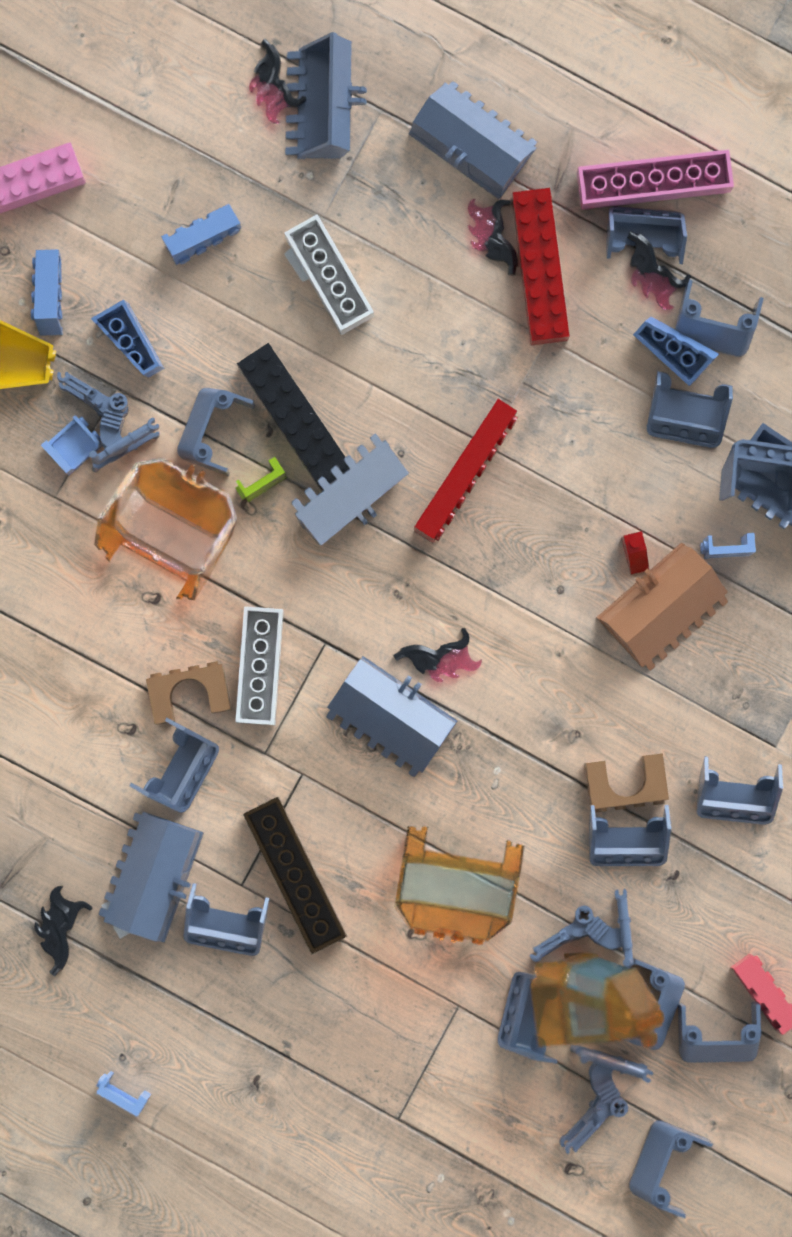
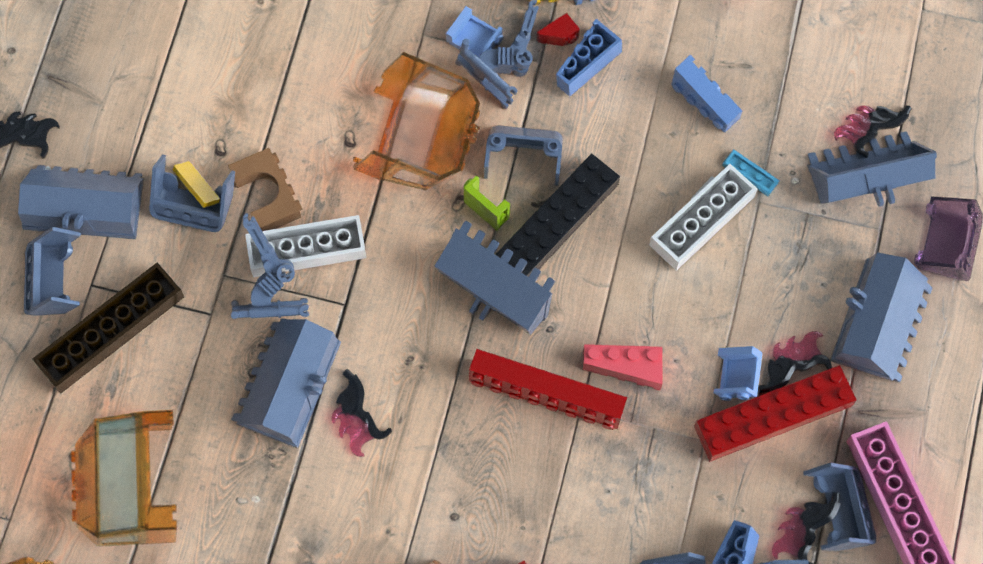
camera: 75 degrees right, 15 degrees down
(92, 358) = (559, 32): none -> red slope
(164, 760) = (196, 184): none -> yellow tile
(291, 215) = (756, 175): none -> medium azure tile
(296, 710) = (269, 282): none -> sand blue piece
(411, 47) = (951, 237): none -> clear purple windscreen
(459, 383) = (626, 363): none -> coral wedge
(495, 288) = (739, 373): none -> light blue panel

